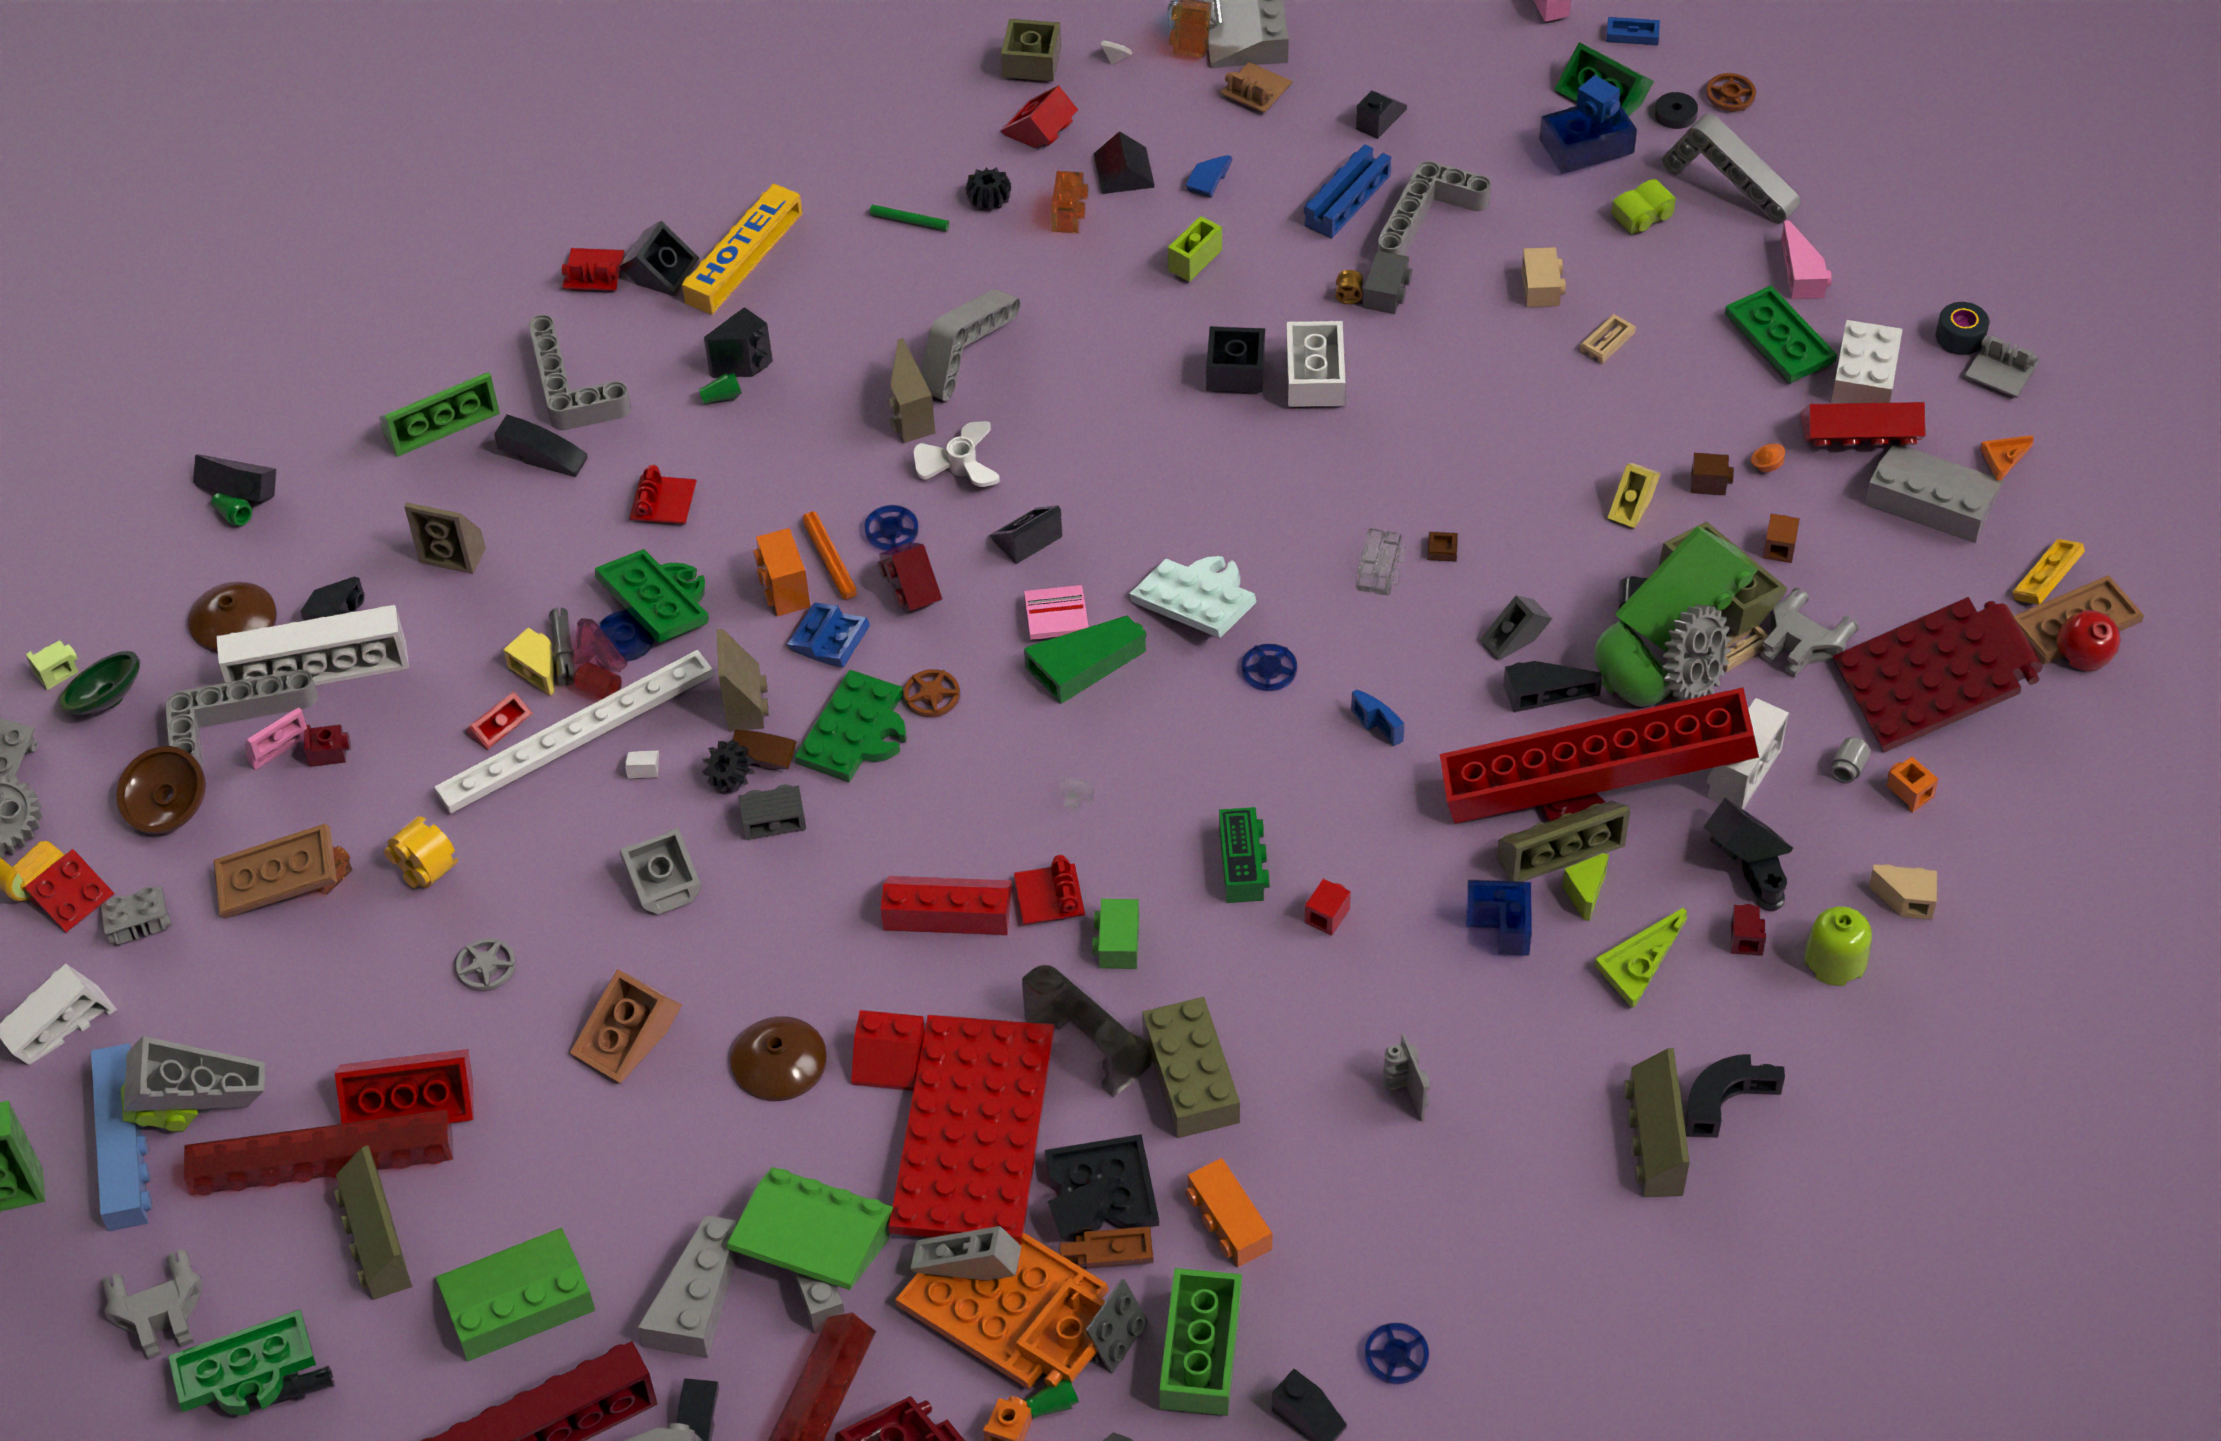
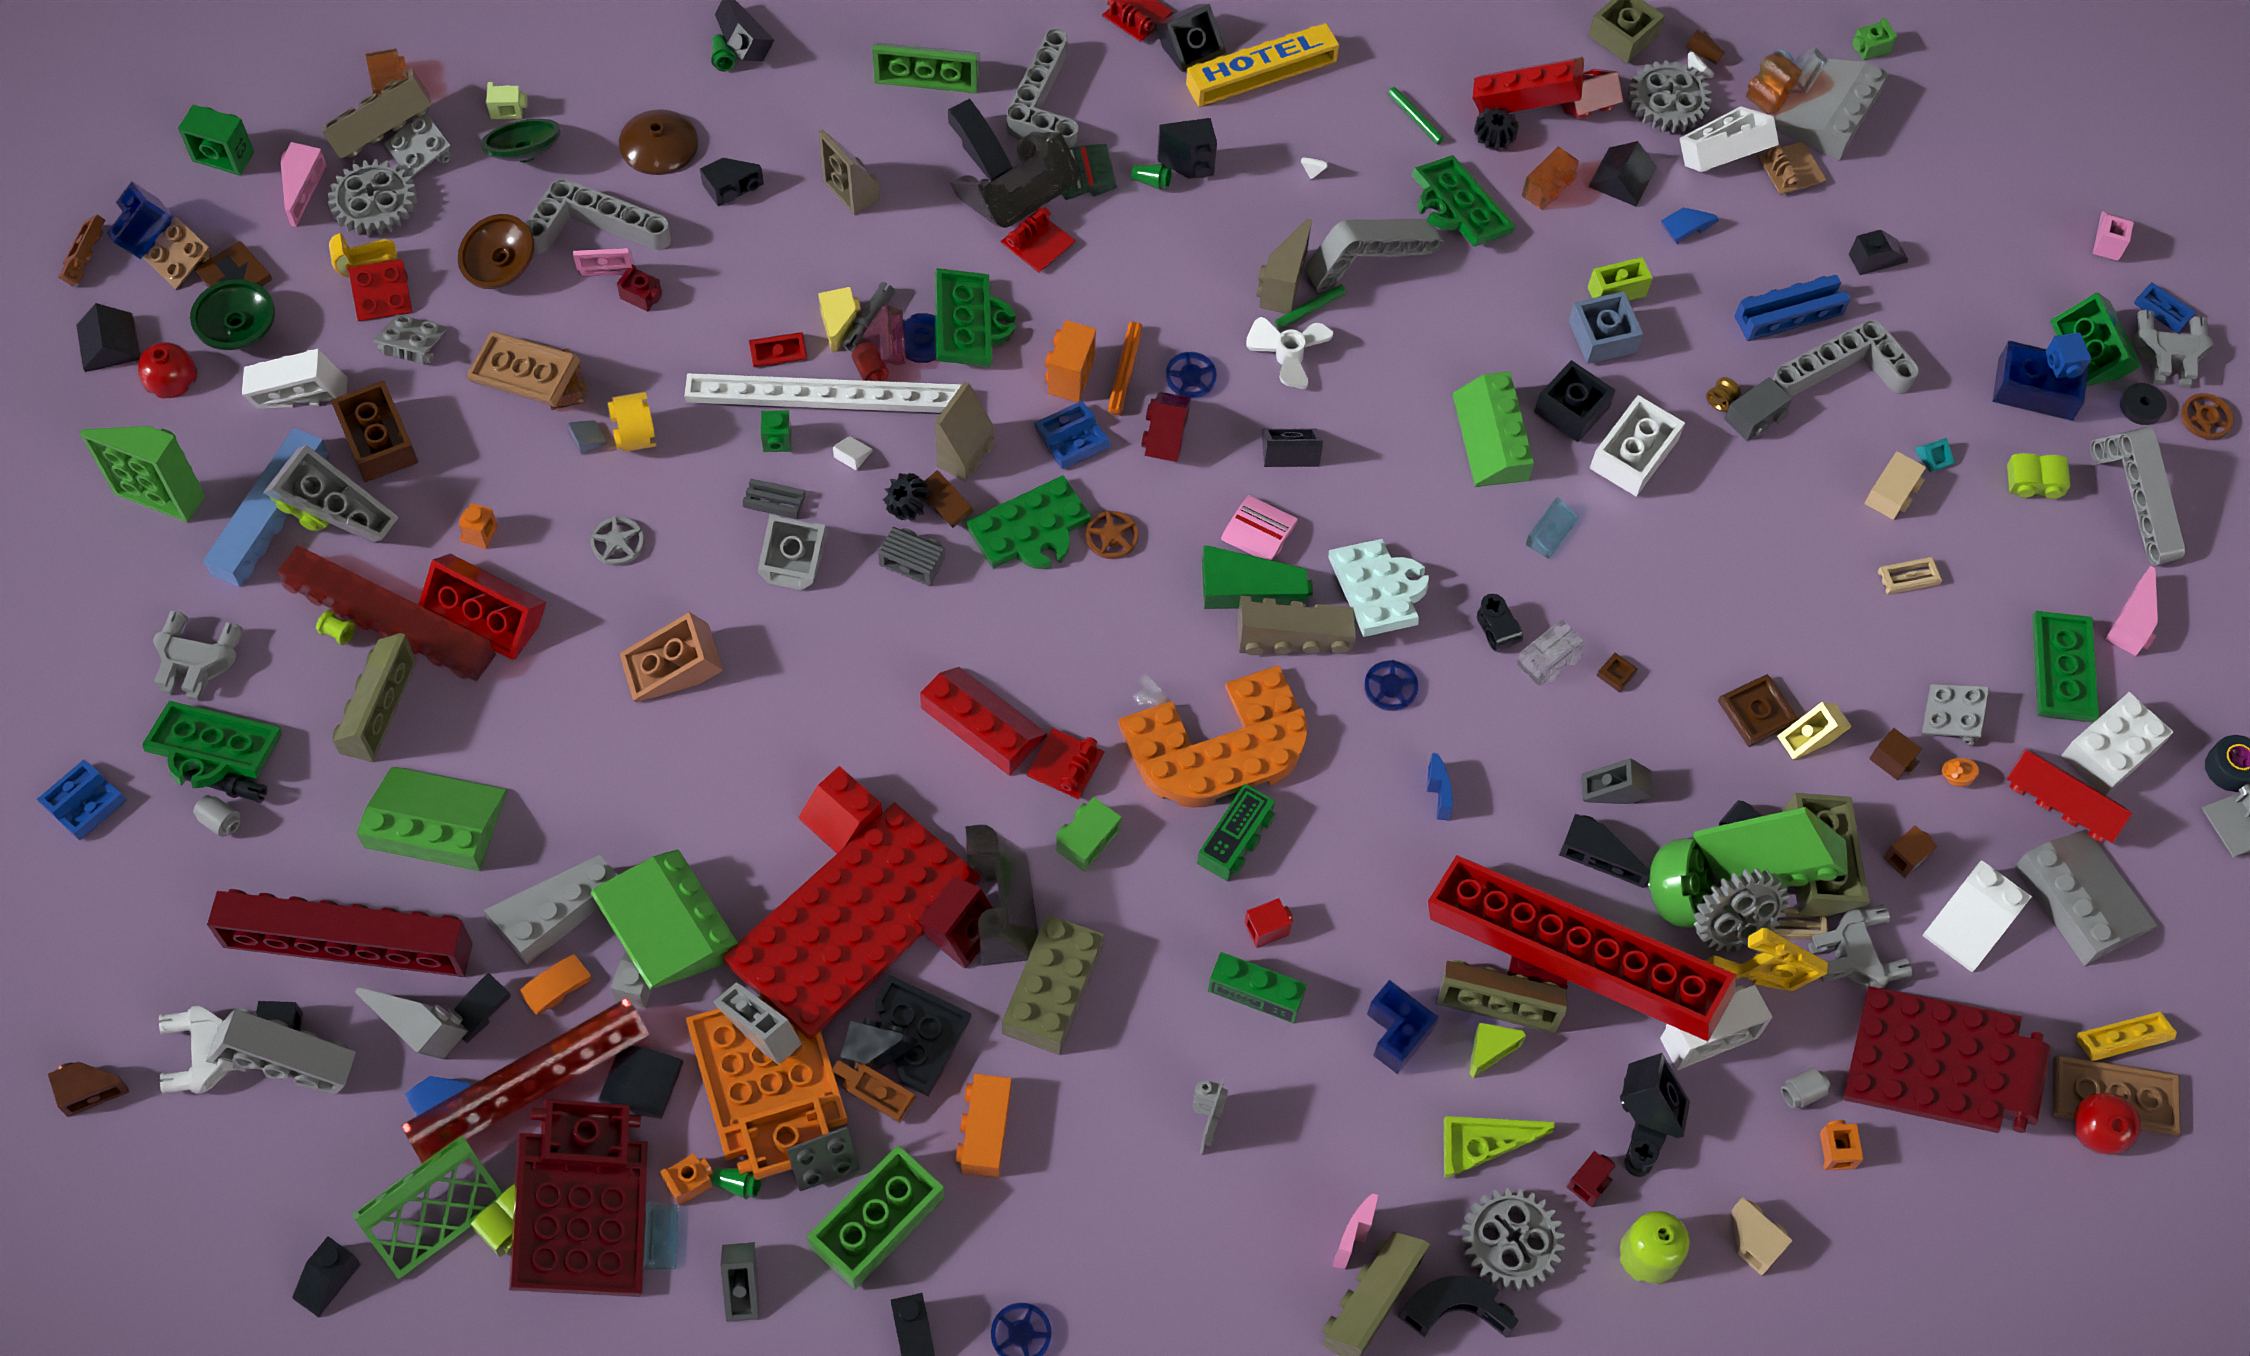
camera: 30 degrees right, 10 degrees up
(173, 1005) = (374, 431): none -> reddish brown brick
(279, 1195) = (335, 627): none -> lime bush
(304, 1420) = (217, 815): none -> light grey brick
(327, 647) = (690, 208): white brick -> none
(343, 1028) = (473, 523): none -> orange brick
(379, 895) = (586, 435): none -> sand blue slope
(560, 784) = (776, 431): none -> green brick
(601, 839) = (775, 494): none -> dark grey tile
(622, 444) = (1042, 175): none -> clear smoke windscreen
(656, 419) = (1095, 171): none -> clear green slope
(750, 1352) = (555, 982): none -> orange slope
(780, 1071) = (765, 775): reddish brown dish -> none
(856, 304) = (1313, 166): none -> white slope
(898, 1372) = (641, 1080): none -> black slope
(948, 415) = (1310, 306): none -> green bar
(994, 137) = (1530, 86): none -> red slope
(1008, 262) = (1459, 202): none -> green plate
(1069, 1066) = (954, 920): none -> dark red slope
(1109, 32) = (1705, 47): none -> reddish brown cone
(1111, 86) = (1669, 96): none -> light grey gear
(1152, 669) = (1293, 628): none -> dark tan wedge
(1187, 421) = (1493, 430): none -> bright green slope
(1191, 89) = (1728, 139): none -> white wedge
(1205, 779) = (1203, 772): none -> orange plate
(1213, 289) = (1605, 327): none -> sand blue brick
(1298, 469) = (1551, 528): none -> clear light blue slope
(1319, 567) = (1498, 623): none -> black piece
(1362, 960) = (1257, 987): none -> green brick
(1551, 236) = (1936, 454): none -> teal slope
(1576, 507) = (1758, 710): none -> reddish brown tile
(1602, 1092) = (1356, 1230): none -> bright pink slope
(1665, 59) = (2172, 350): none -> light grey connector
(1725, 1015) = (1489, 1253): none -> light grey gear
(1728, 415) = (1956, 711): none -> light grey hinge
(1764, 670) = (1779, 966): none -> yellow wing
(1869, 553) = (1977, 916): none -> white slope
(2005, 453) = (2178, 902): orange tile -> none

